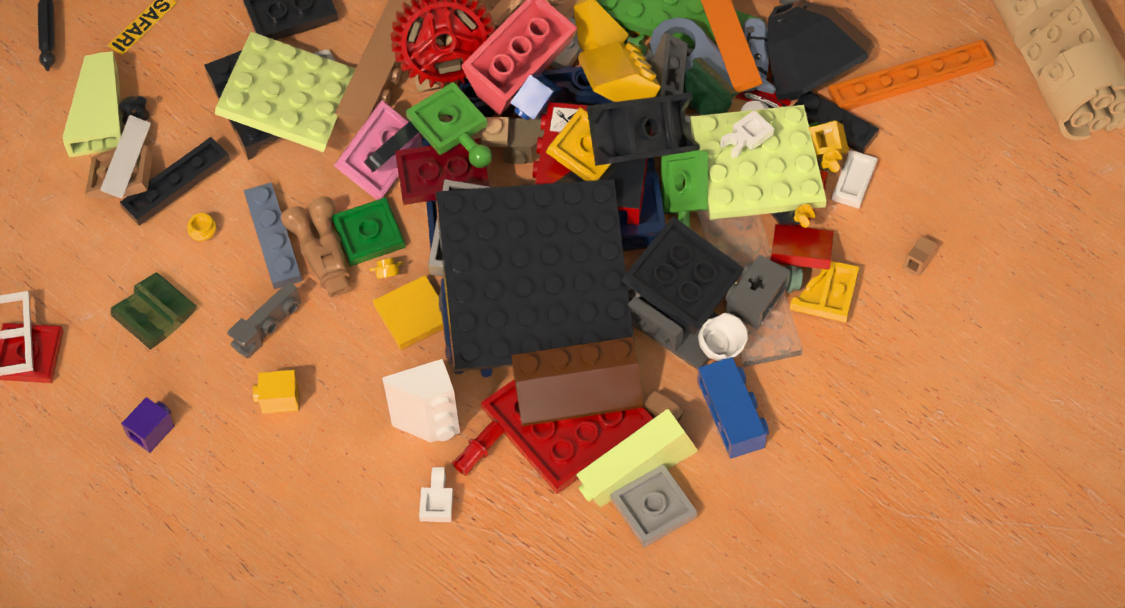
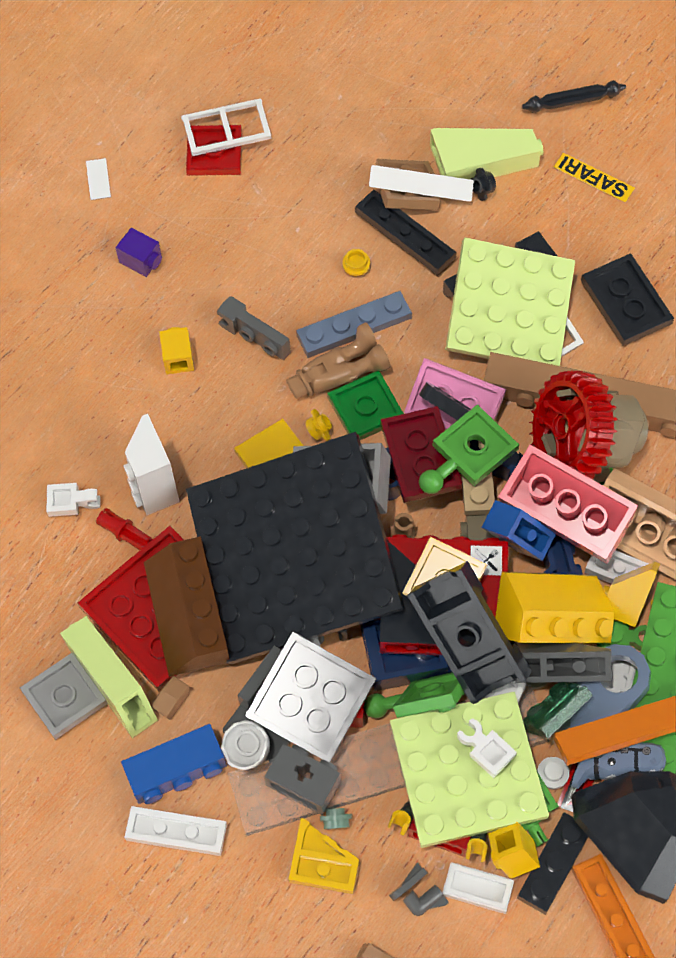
camera: 85 degrees right, 5 degrees up
(35, 471) = (98, 179): none -> white sticker
(153, 310) = (262, 238): clear green slope -> none
(796, 410) = (175, 831): none -> white plate
(802, 246) = (366, 829): red tile -> none
(854, 230) = (419, 905): none -> dark grey piece

